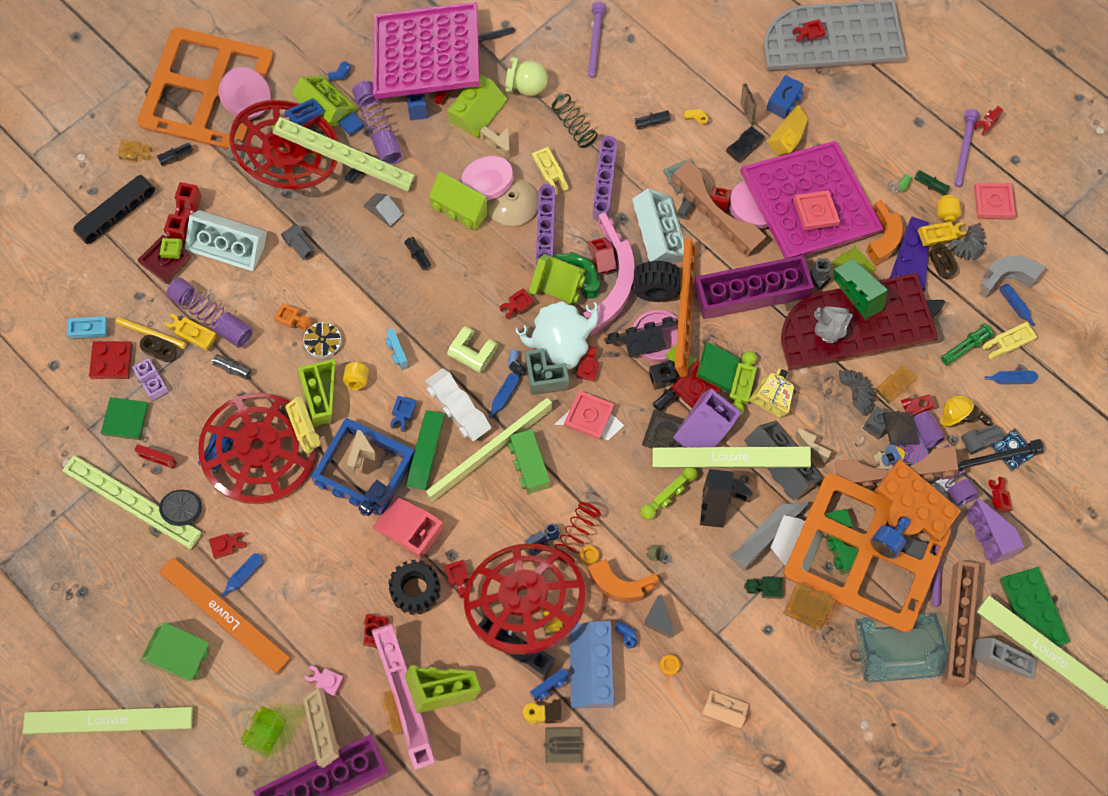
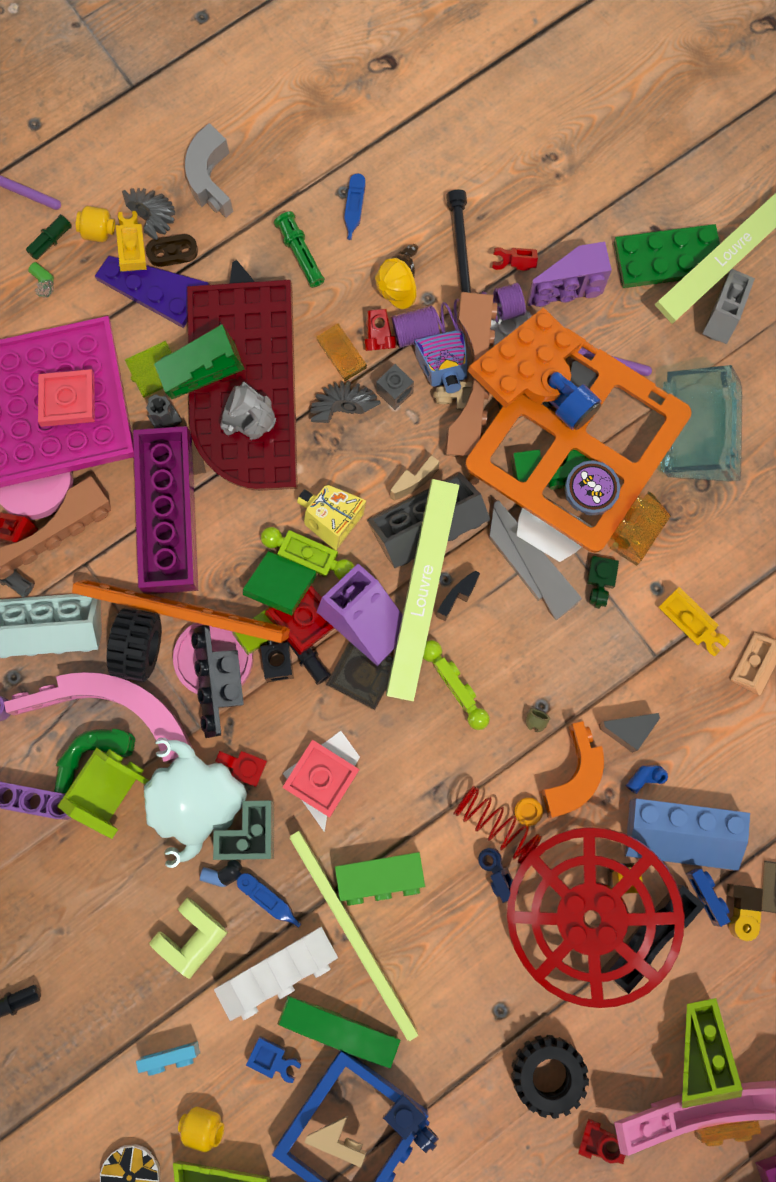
camera: 80 degrees left, 10 degrees up
(409, 527) = (455, 1074): coral slope -> none
(457, 575) = (534, 1007): red plate -> none
(518, 302) = (123, 854): red plate -> none
(602, 255) = (70, 718): slope -> none
(669, 665) = (693, 727): light orange tile -> none
(716, 497) = (479, 621): black wedge -> none
(747, 655) = (693, 620): none -> yellow plate
(830, 562) = (592, 487): none -> tile
(884, 247) = (118, 307): orange arch -> none
(901, 428) = (414, 357): clear smoke piece -> none
(960, 623) = (681, 344): nougat brick -> none
(977, 440) = (437, 267): dark grey piece -> none
(994, 200) = (93, 164): coral plate -> none
(1010, 441) = (443, 232): sticker -> none
(1011, 340) = (303, 193): light yellow hinge -> none
(1016, 303) = (249, 174): blue piece -> none

